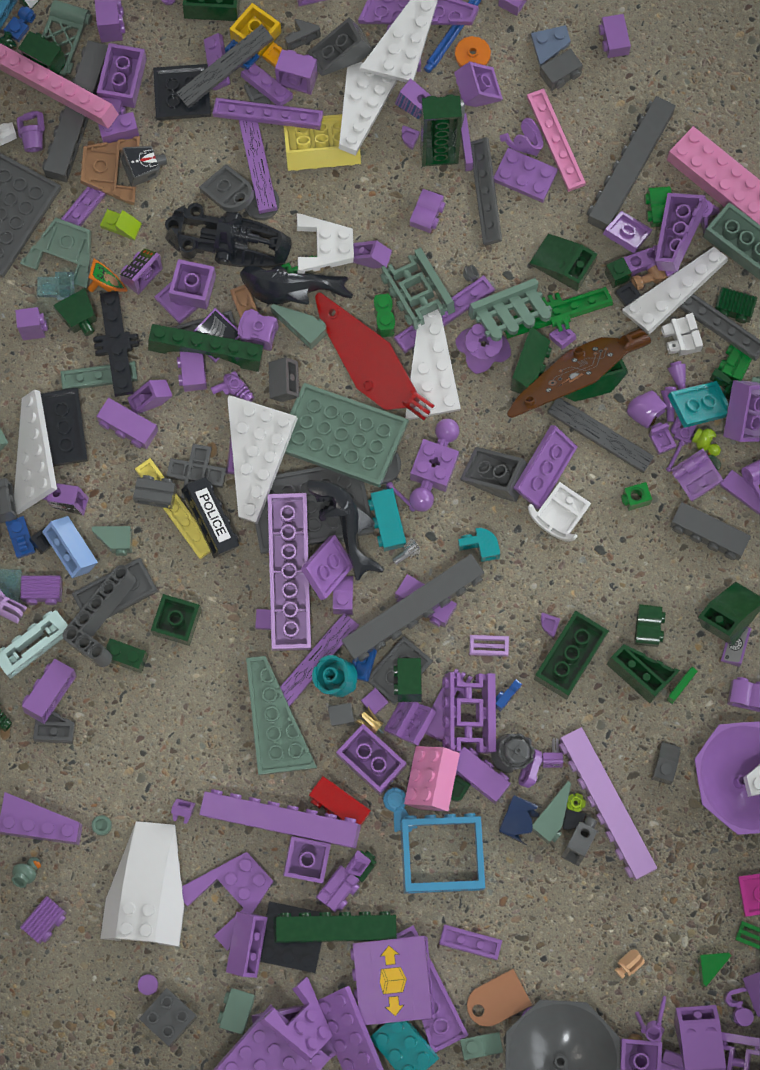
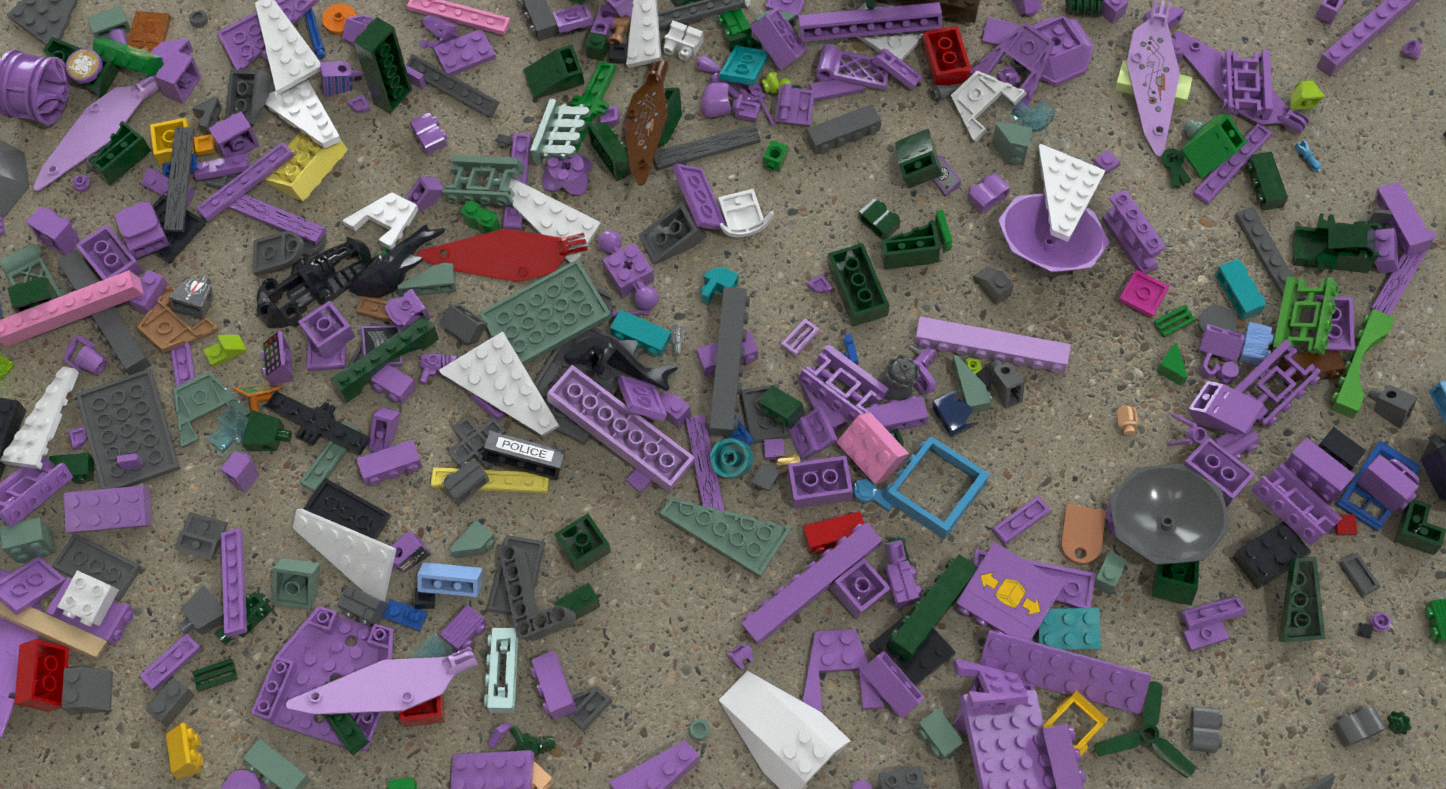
camera: 50 degrees left, 10 degrees down
(161, 77) = (141, 229): none -> medium lavender brick

